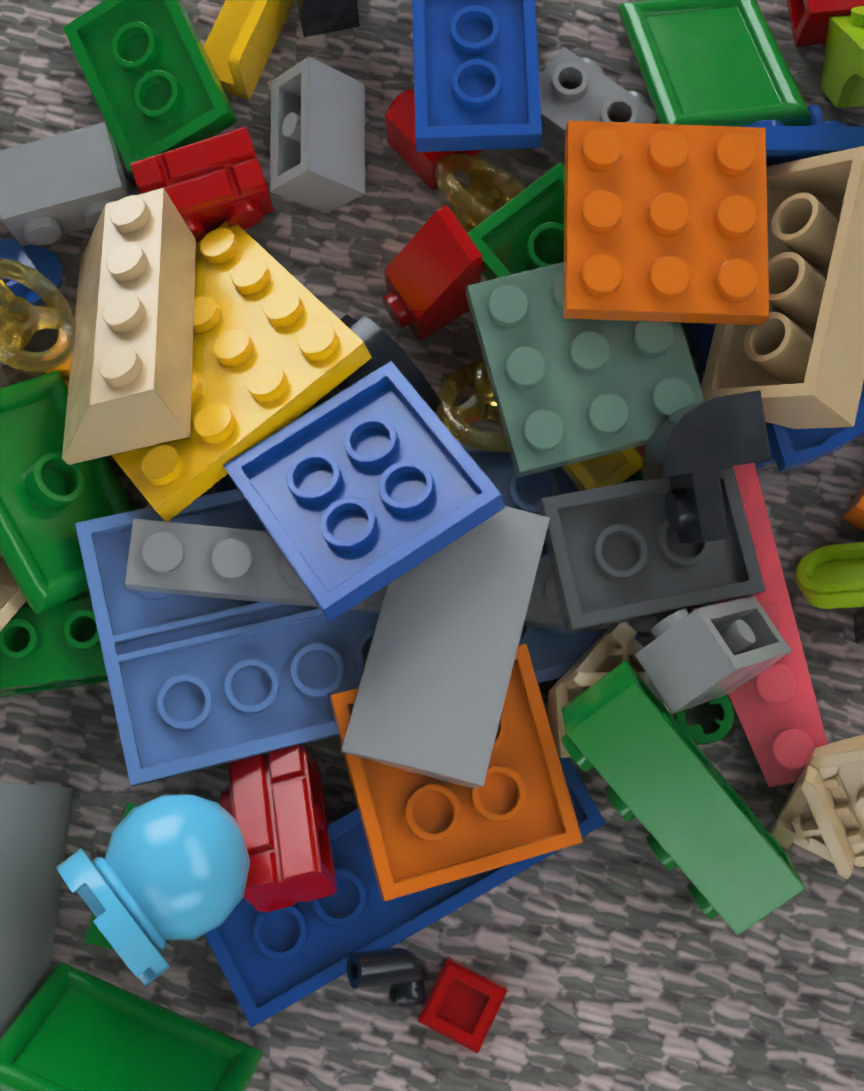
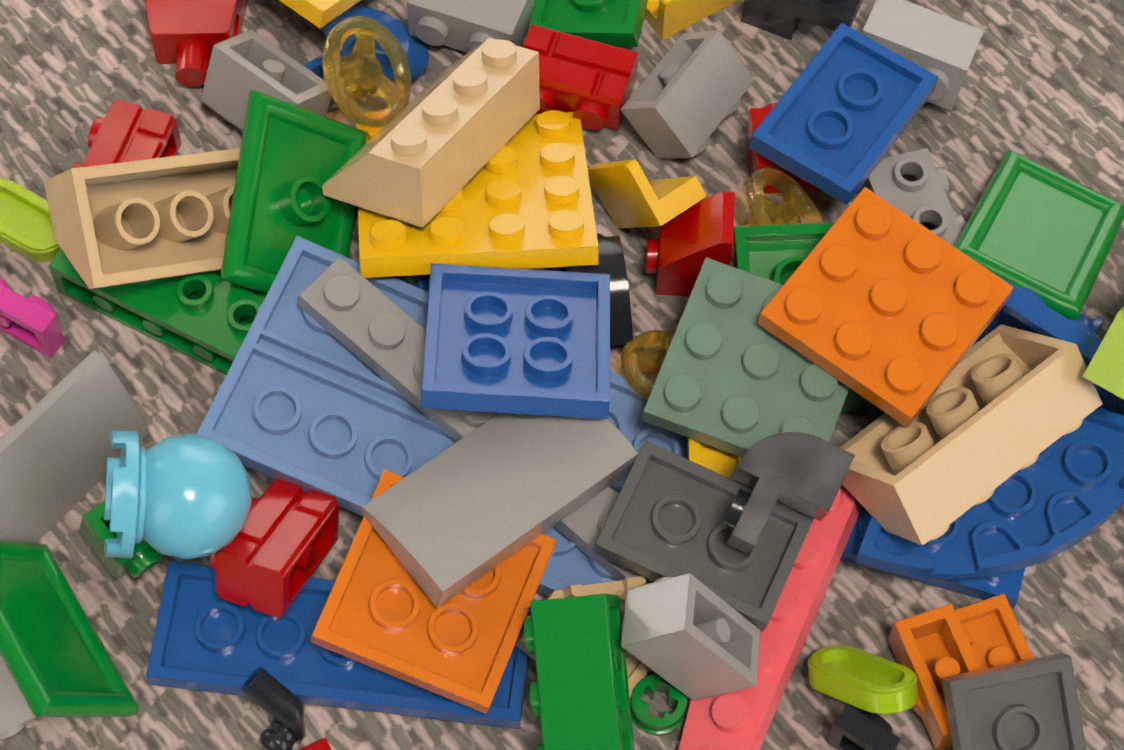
camera: 30 degrees right, 15 degrees down
(356, 262) = (639, 202): none -> yellow panel

